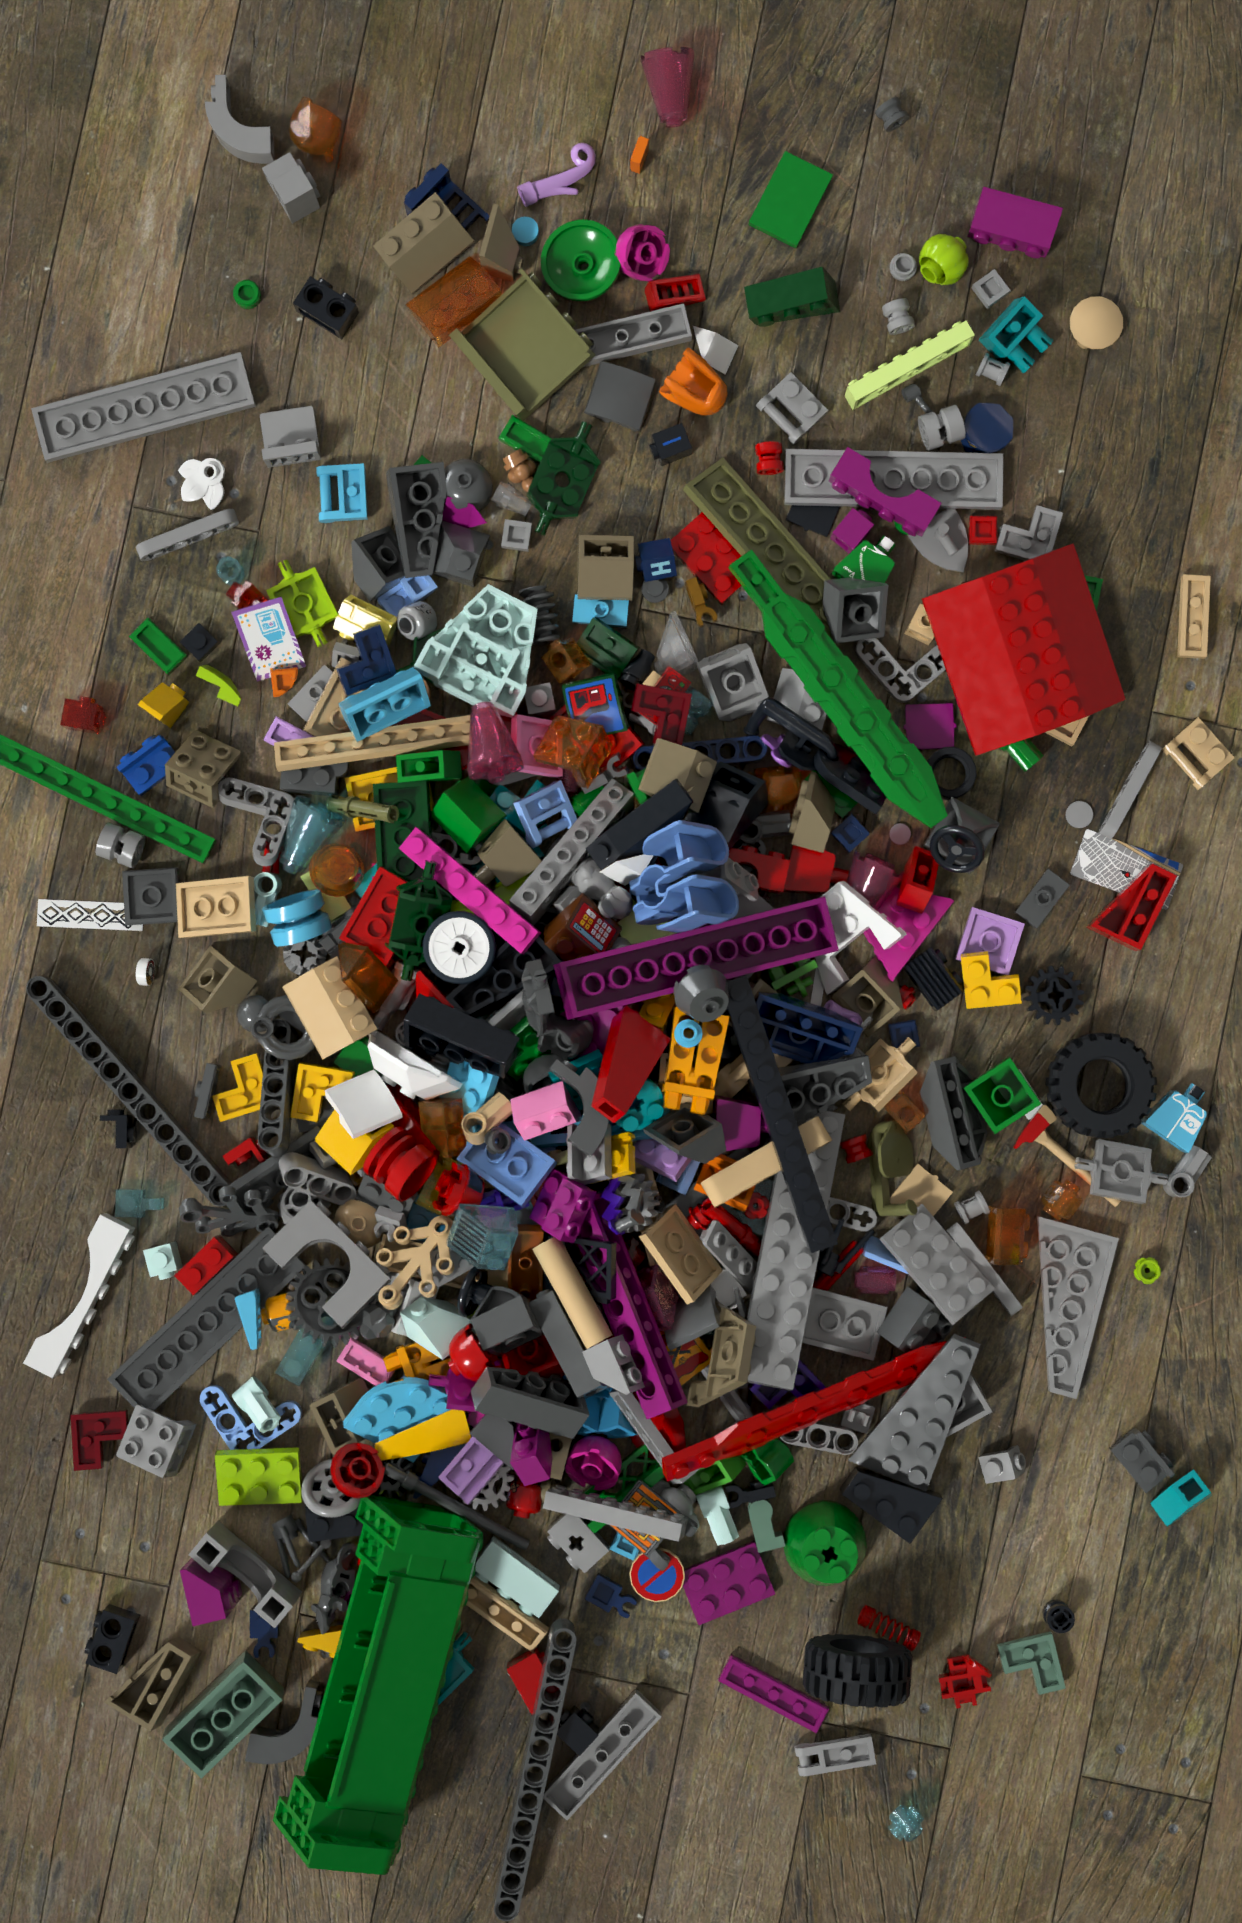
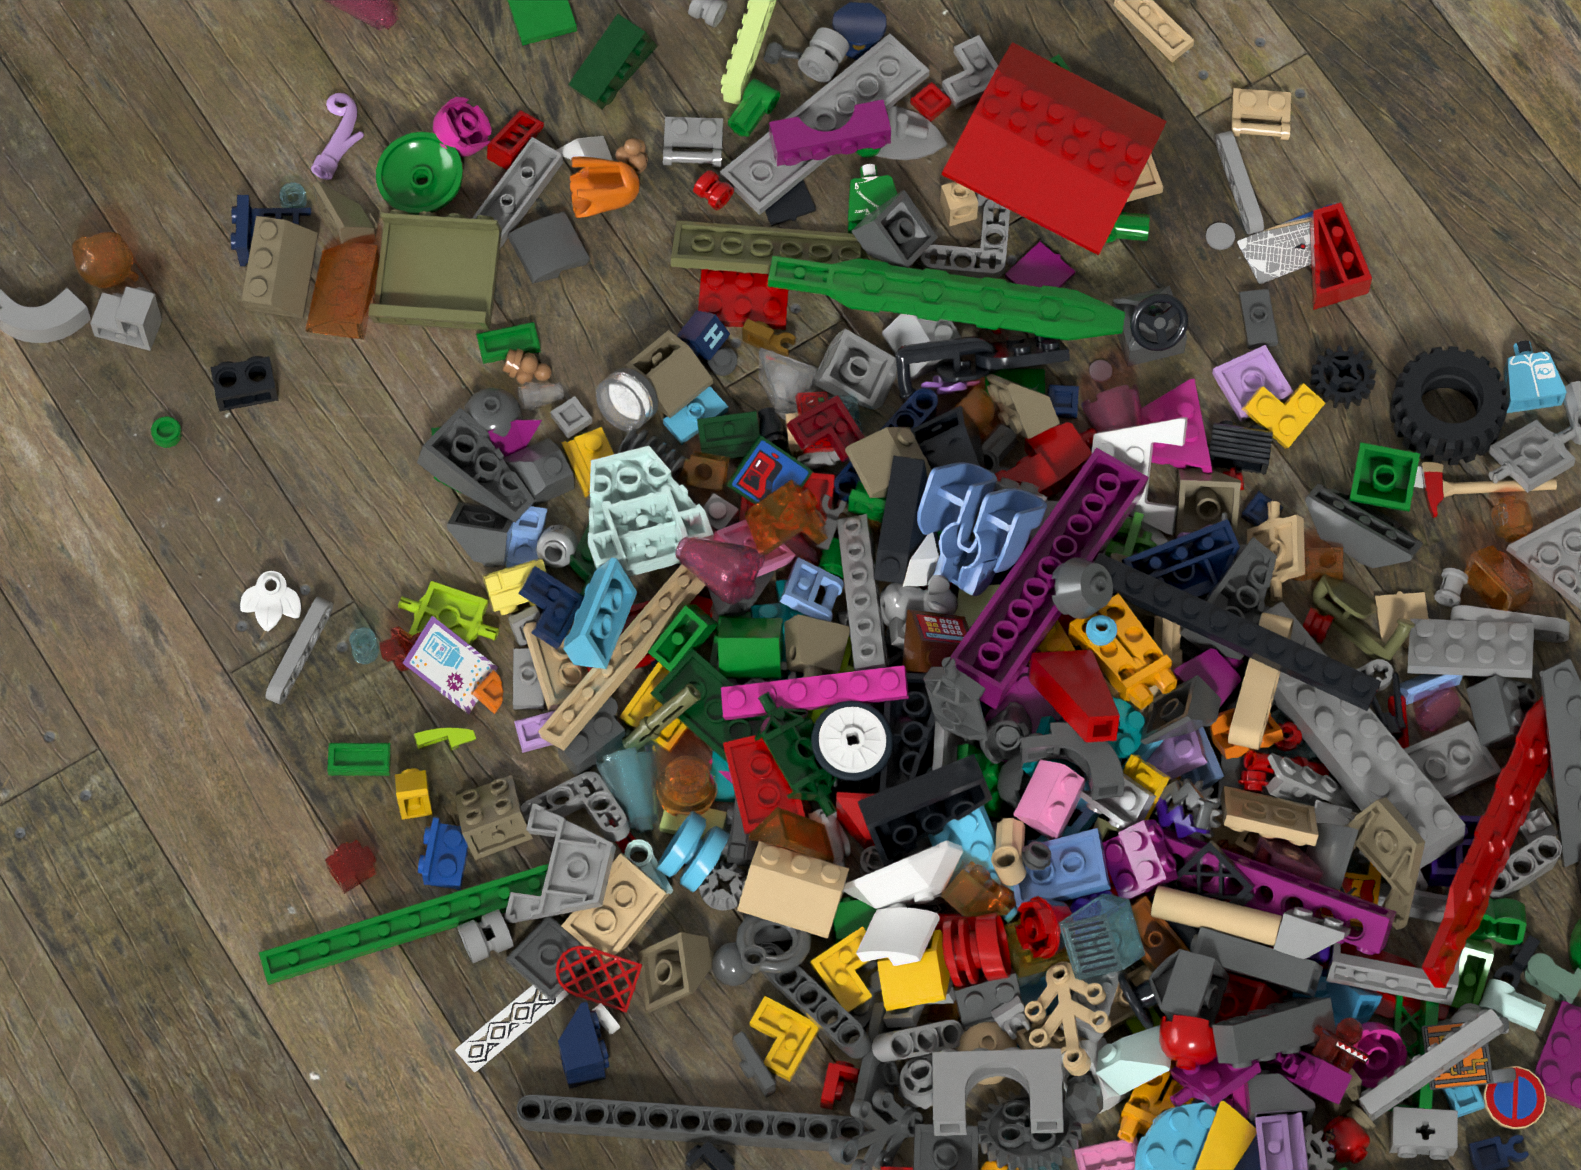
camera: 50 degrees left, 20 degrees down
(105, 980) = (580, 1051): none -> dark blue slope
(143, 407) = (164, 587): light grey plate -> none
(159, 945) = (631, 988): none -> red window
(199, 642) = (391, 725): black plate -> none
(212, 858) = (575, 873): none -> light grey wing
(289, 437) = (311, 504): light grey bracket -> none
(350, 491) = (402, 501): medium azure plate -> none
(486, 187) = (292, 188): none -> clear light blue bush
(504, 572) = (583, 450): none -> yellow plate
(525, 231) = (352, 191): medium azure tile -> none
(559, 560) = (626, 399): none -> clear piece
(564, 1449) = (1339, 1047): none -> clear red hips
(575, 460) = (565, 322): dark green plate -> none
(639, 154) = (386, 65): orange tile -> none
(670, 445) = (626, 246): black brick -> none
(738, 382) = (633, 154): none -> medium nougat piece
(852, 530) = (832, 185): magenta brick -> none
(863, 419) = (755, 103): none -> green piece
(918, 881) = (1154, 381): red brick -> none
(968, 763) = (1098, 271): black tyre -> none

